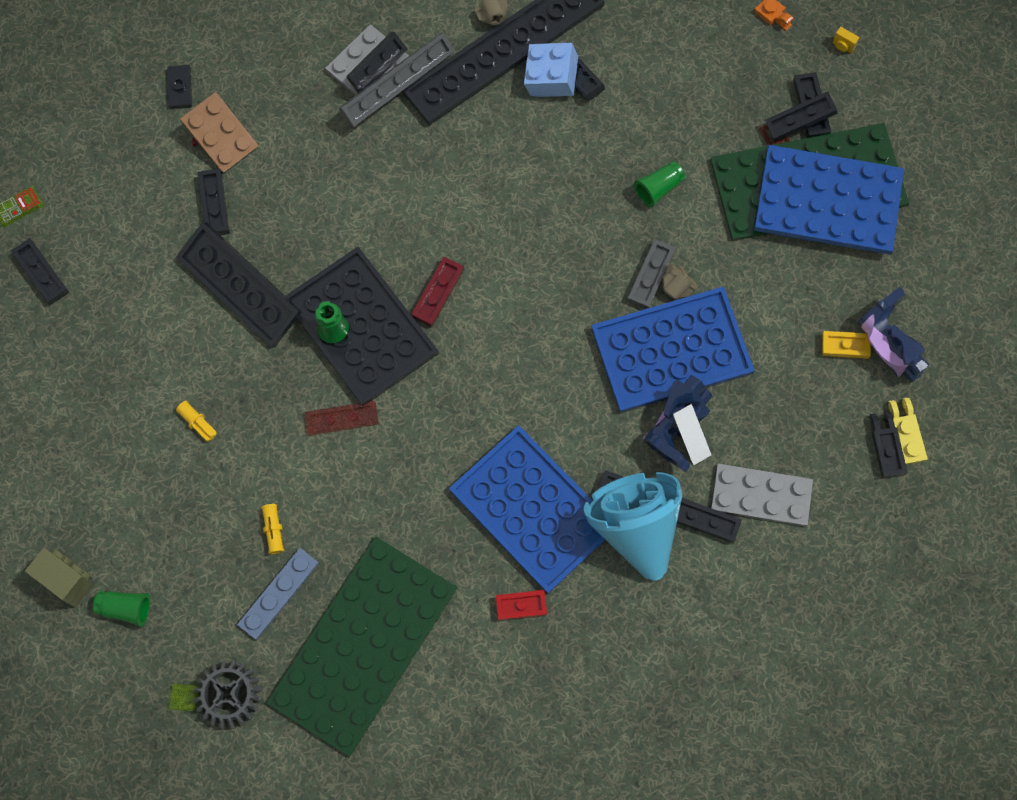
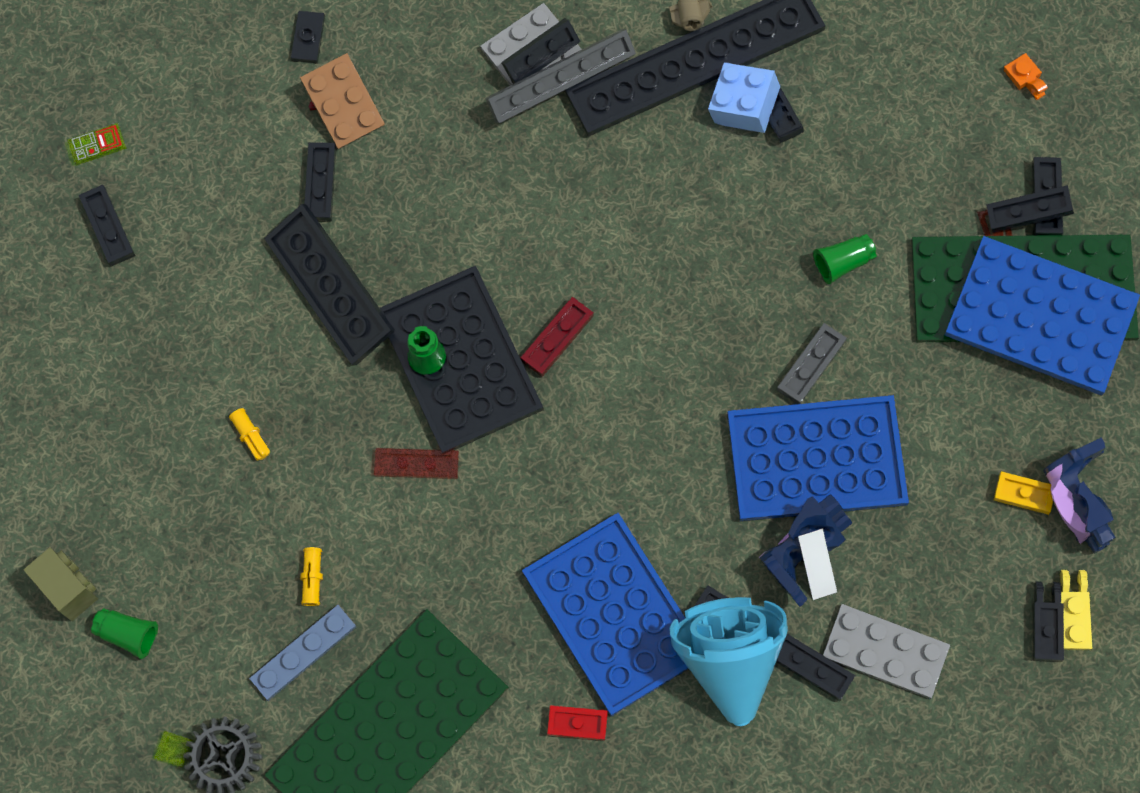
camera: 15 degrees right, 0 degrees up
(677, 282) = (840, 380): dark tan piece -> none
(845, 40) = (1104, 125): yellow plate -> none

